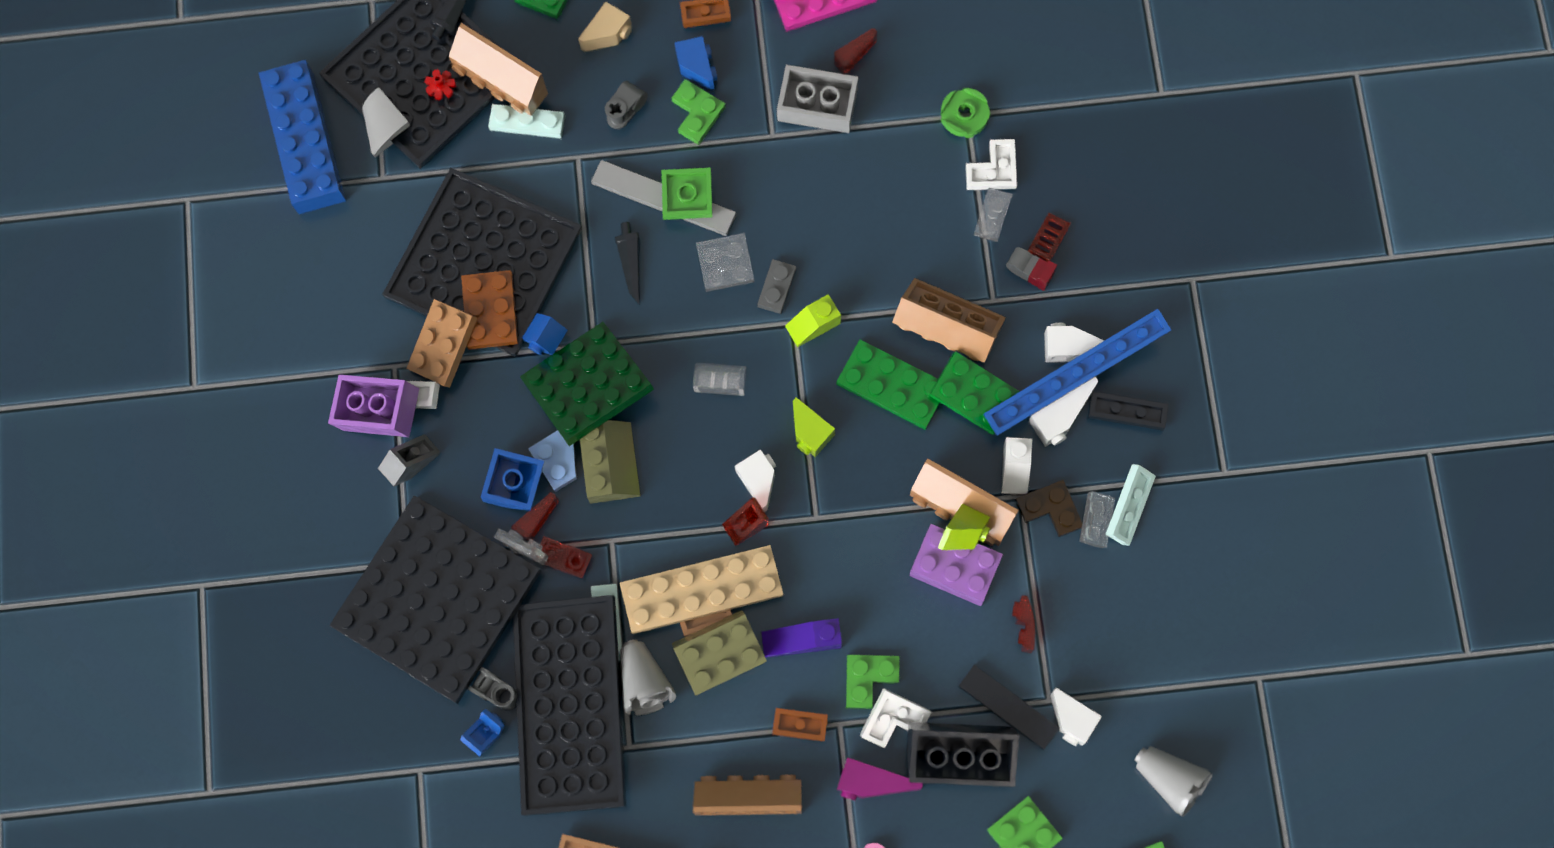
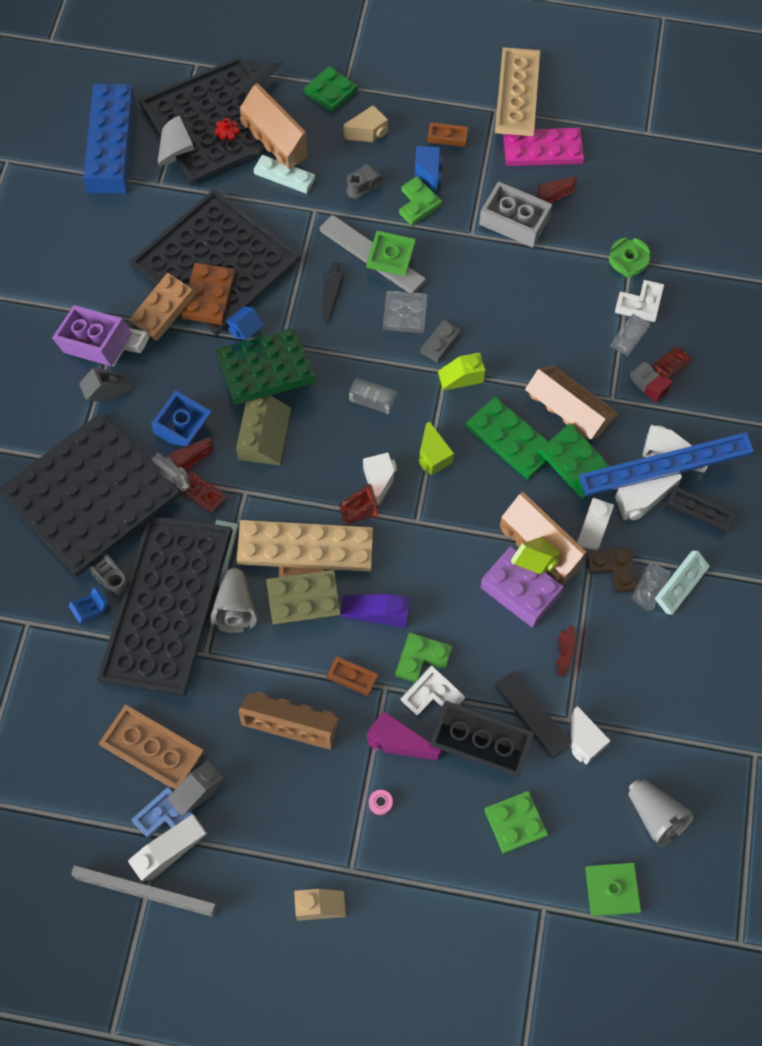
camera: 10 degrees right, 10 degrees down
(559, 460) = (223, 419): light blue wing -> none

